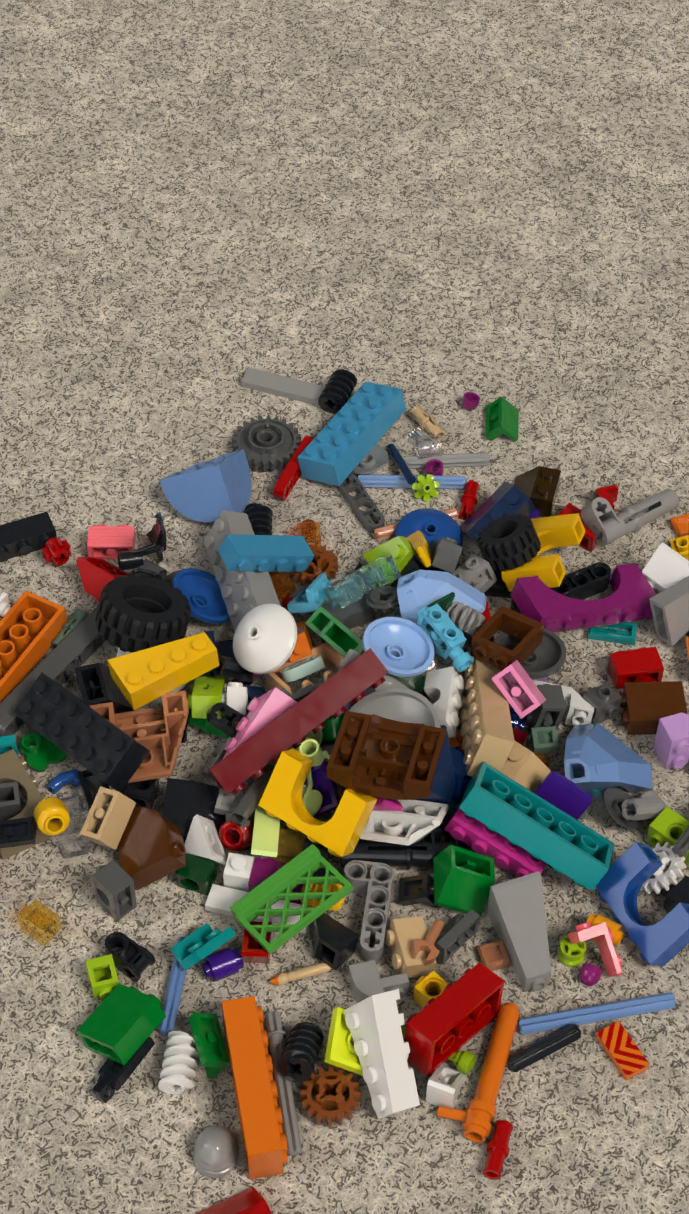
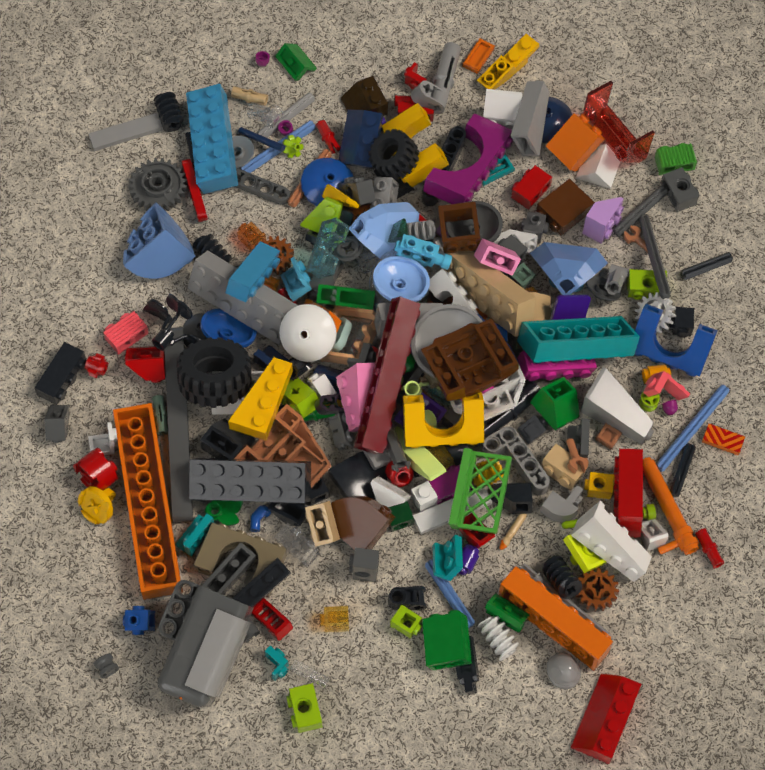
camera: 40 degrees left, 15 degrees up
(51, 816) = (290, 548): yellow head -> none

